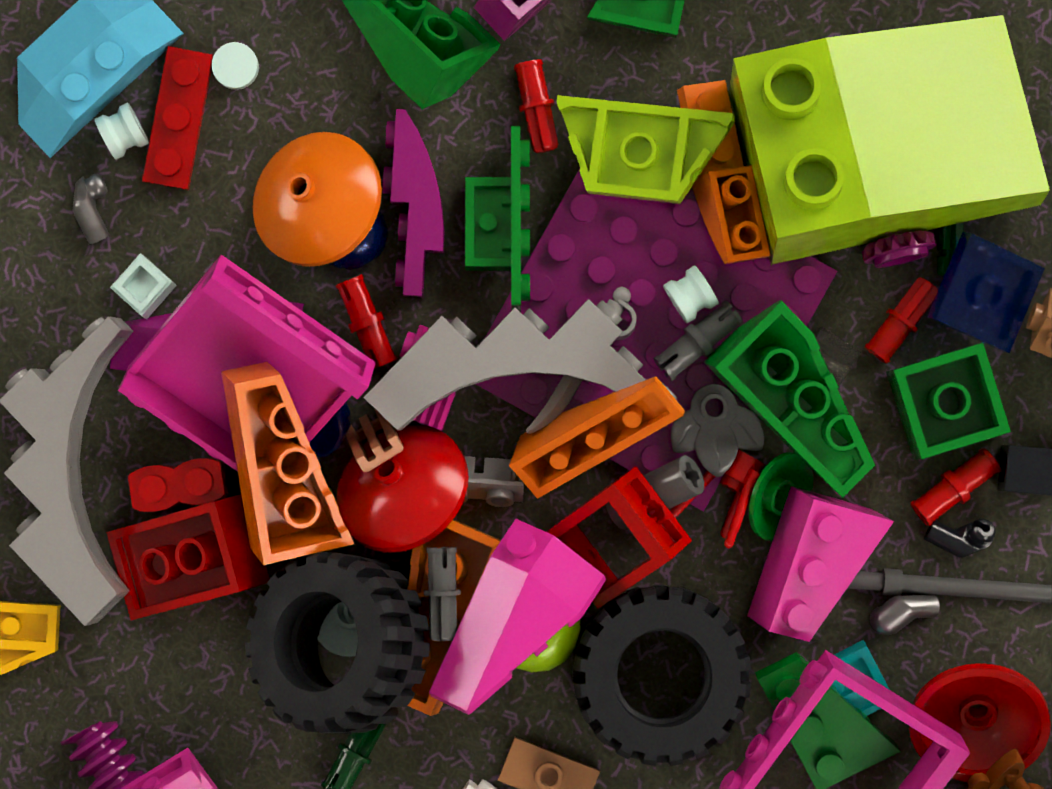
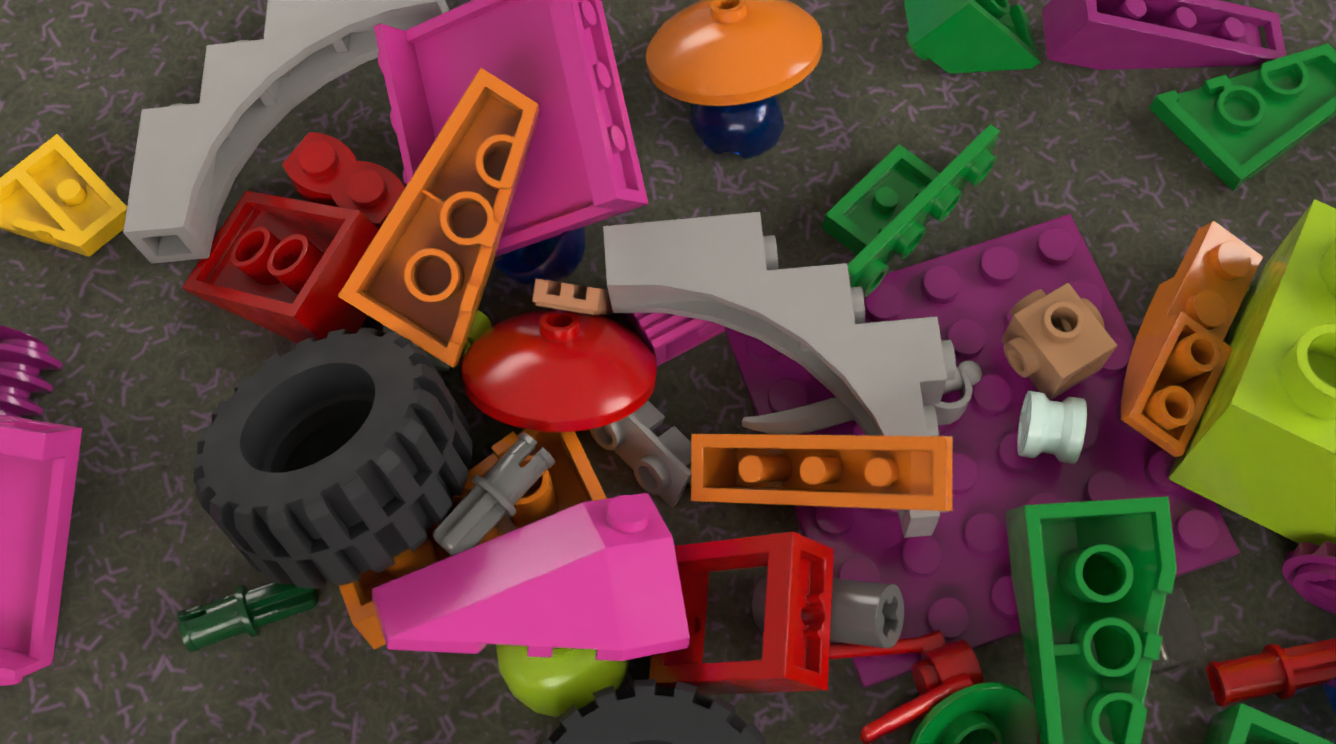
camera: 45 degrees right, 20 degrees down
(366, 321) = (679, 193): red pin -> none
(414, 185) = (833, 127): magenta slope -> none
(536, 106) = (1030, 140): red axle -> none
(641, 147) = (1124, 242): lime wing -> none
(671, 235) = (1056, 340): none -> medium nougat brick
(698, 340) = (1019, 483): dark grey pin -> none
(717, 436) = (954, 605): dark grey plate -> none

